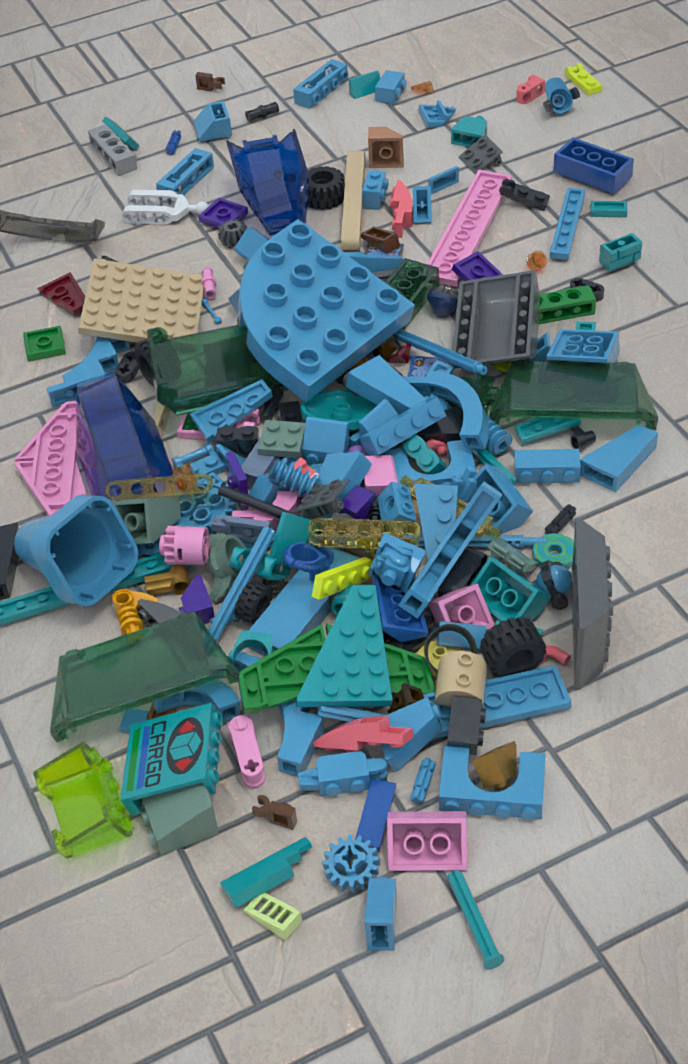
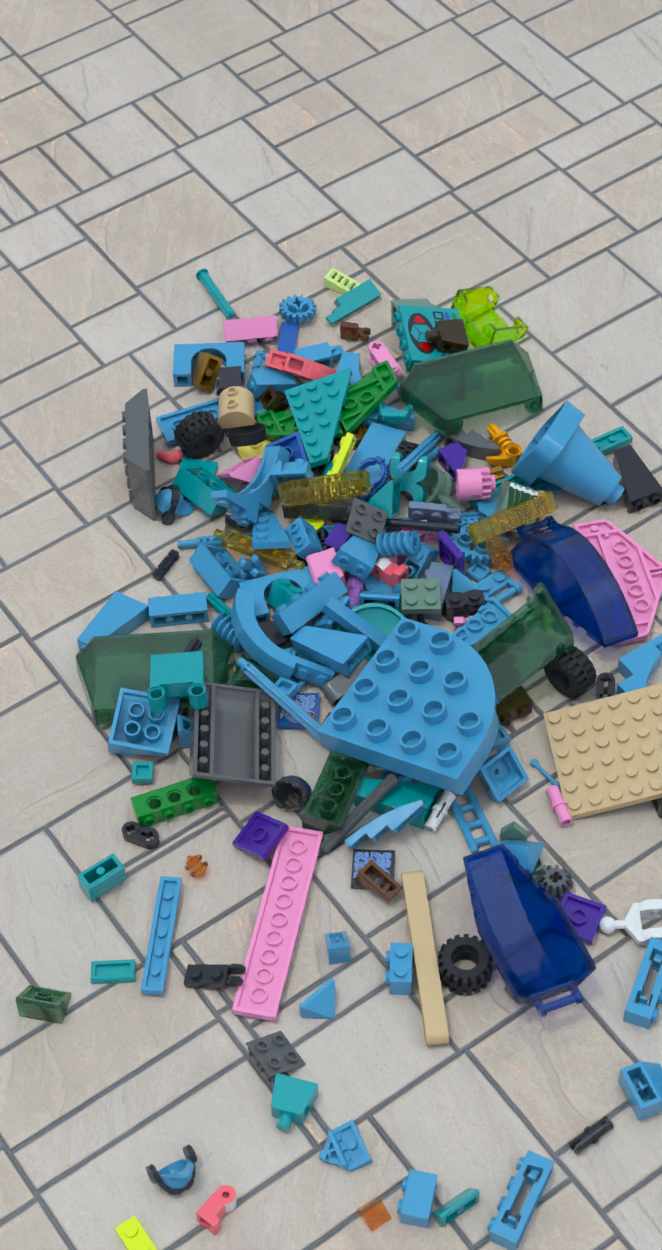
camera: 170 degrees right, 5 degrees up
(149, 735) = (449, 336): none -> dark brown torso
(355, 397) = (353, 622): none -> dark azure slope
(381, 914) = (273, 280): dark azure slope -> none
(385, 148) = (399, 1036): nougat slope -> none
(402, 208) = (361, 943): coral slope -> none
(454, 639) = (239, 454): dark azure tile -> none
(517, 560) = (201, 510): sand green plate -> none
(546, 346) = (178, 677): none -> teal piece
(558, 543) = (165, 530): teal tile -> none
(593, 165) = (130, 1029): blue brick -> none
(665, 185) = (43, 1004): none -> clear green slope

